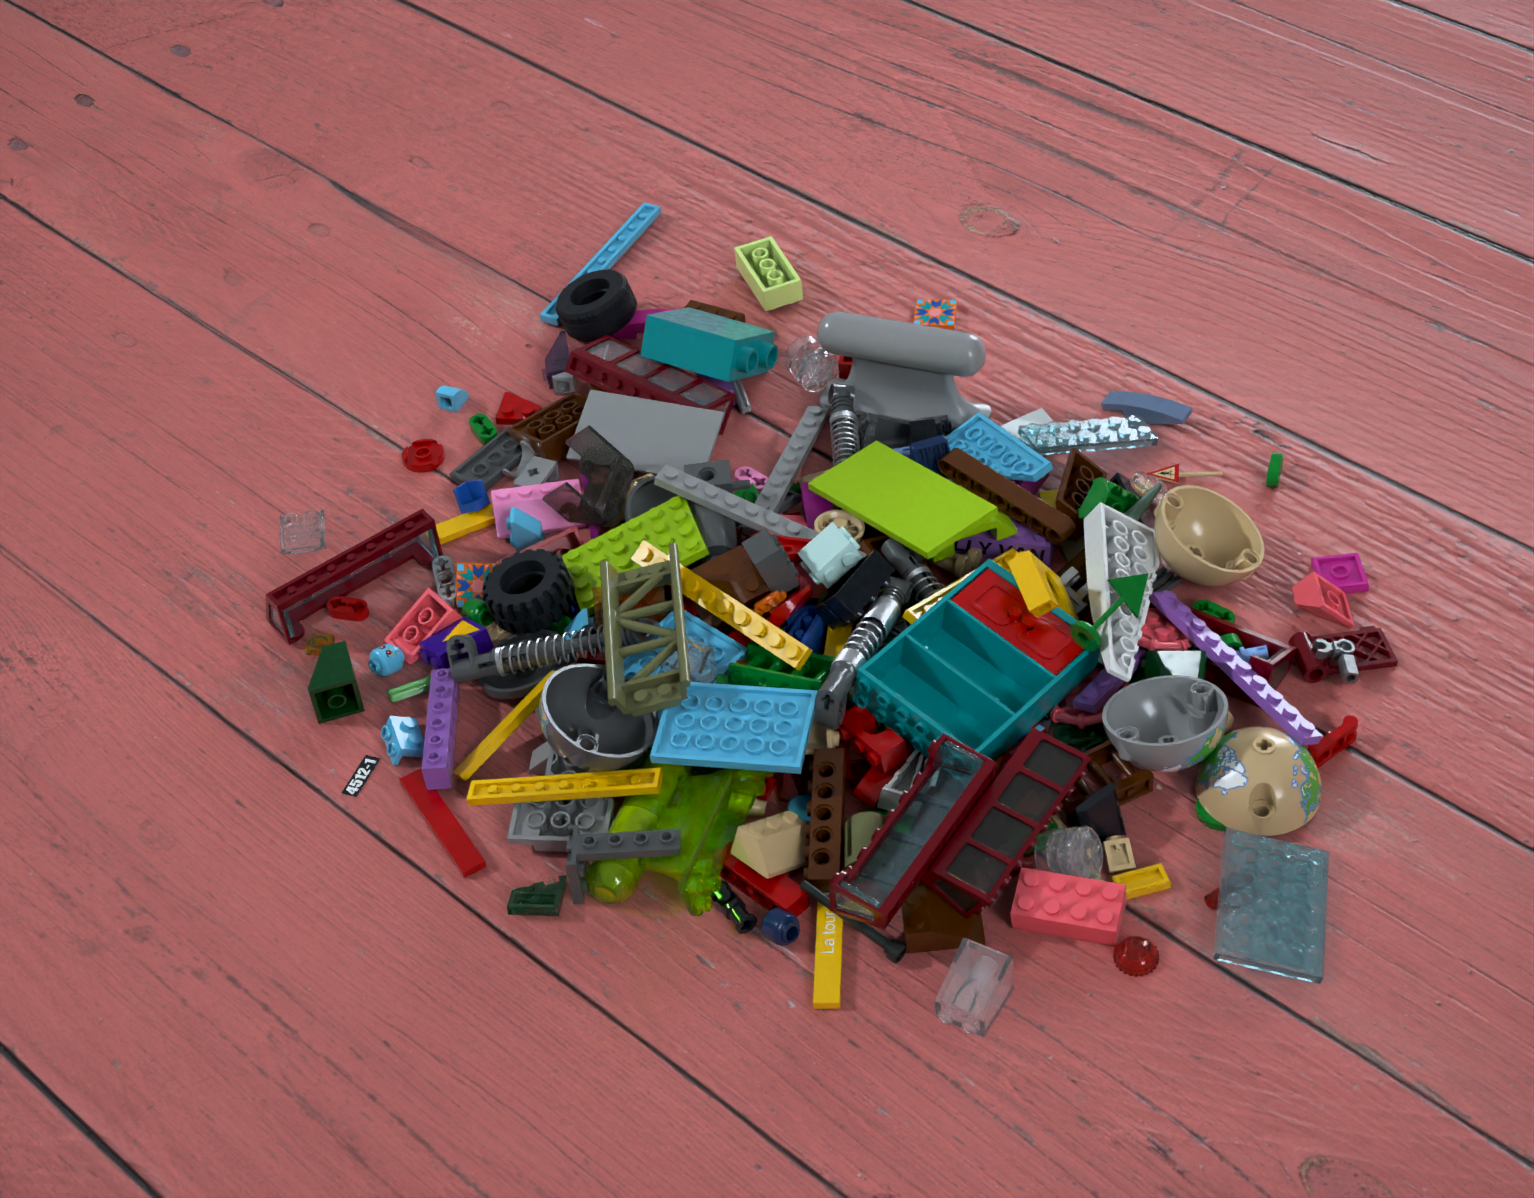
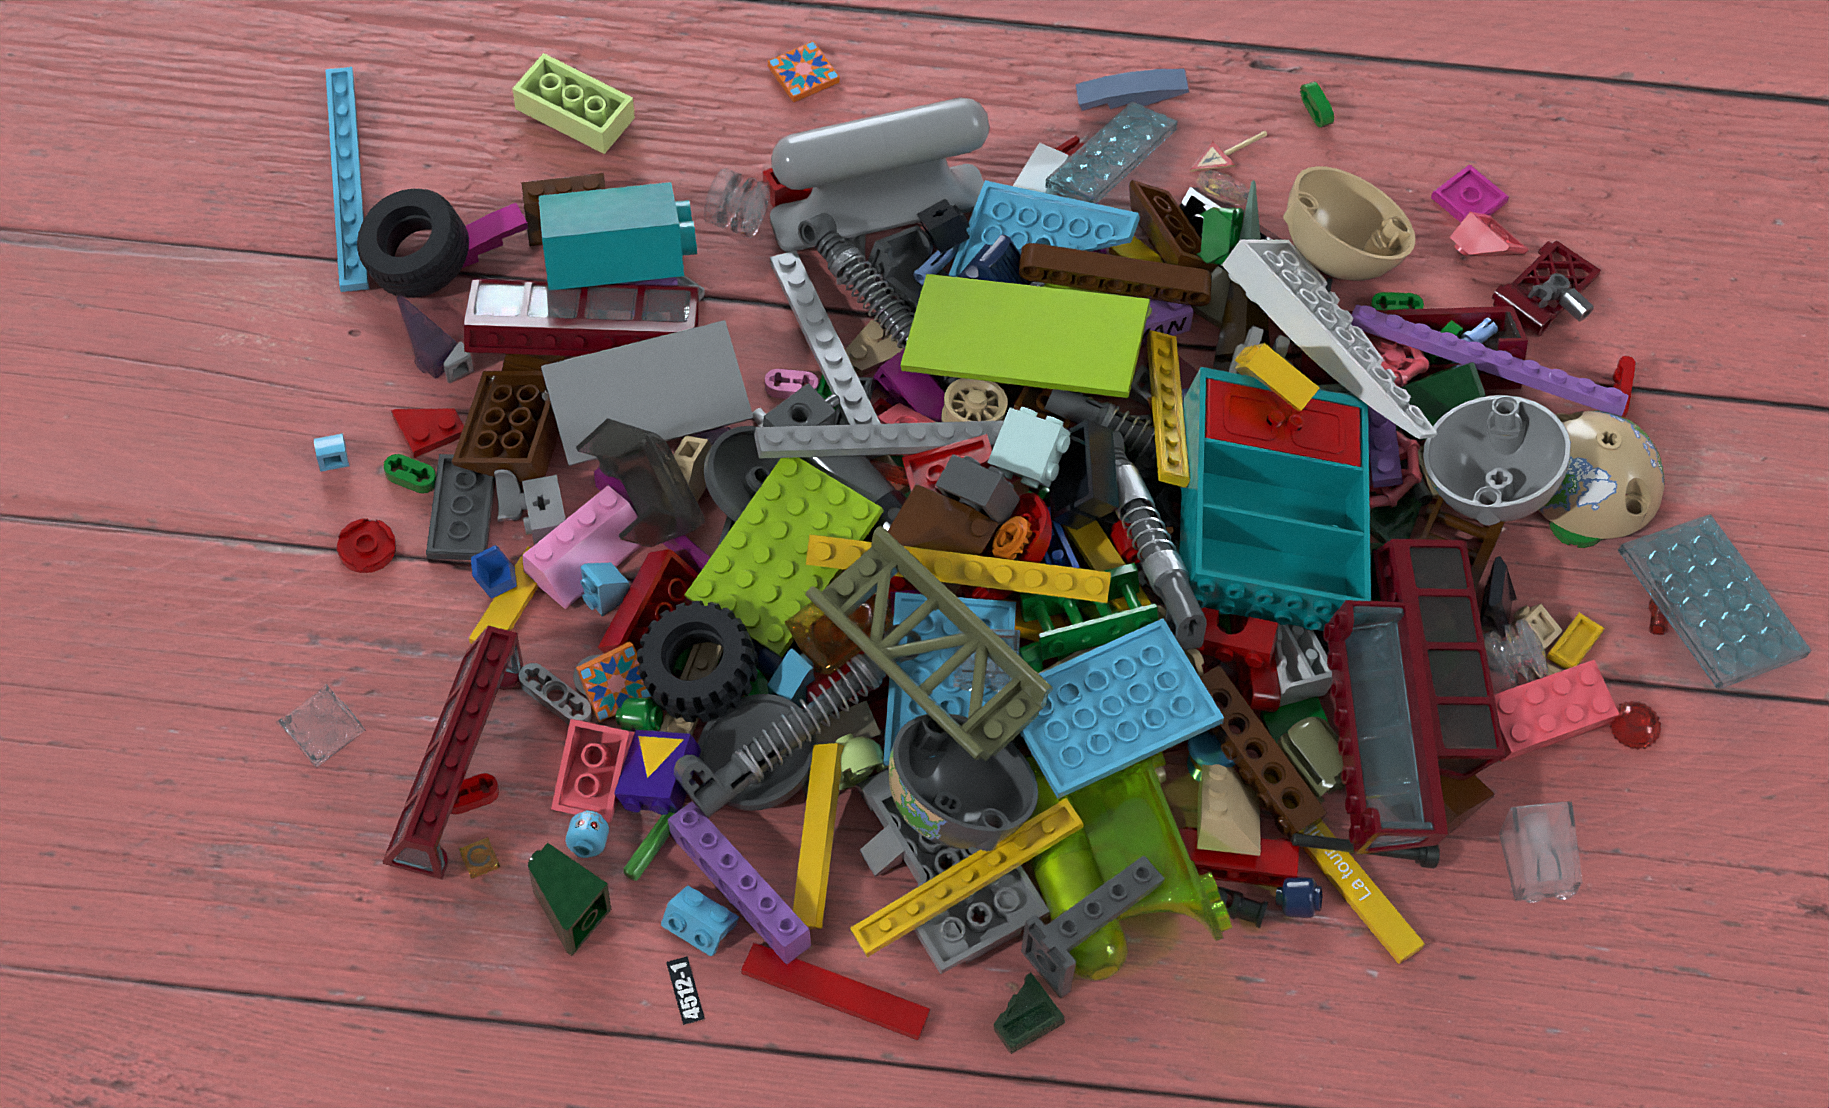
camera: 45 degrees left, 15 degrees up
(1131, 593) = (1366, 406): green piece -> none

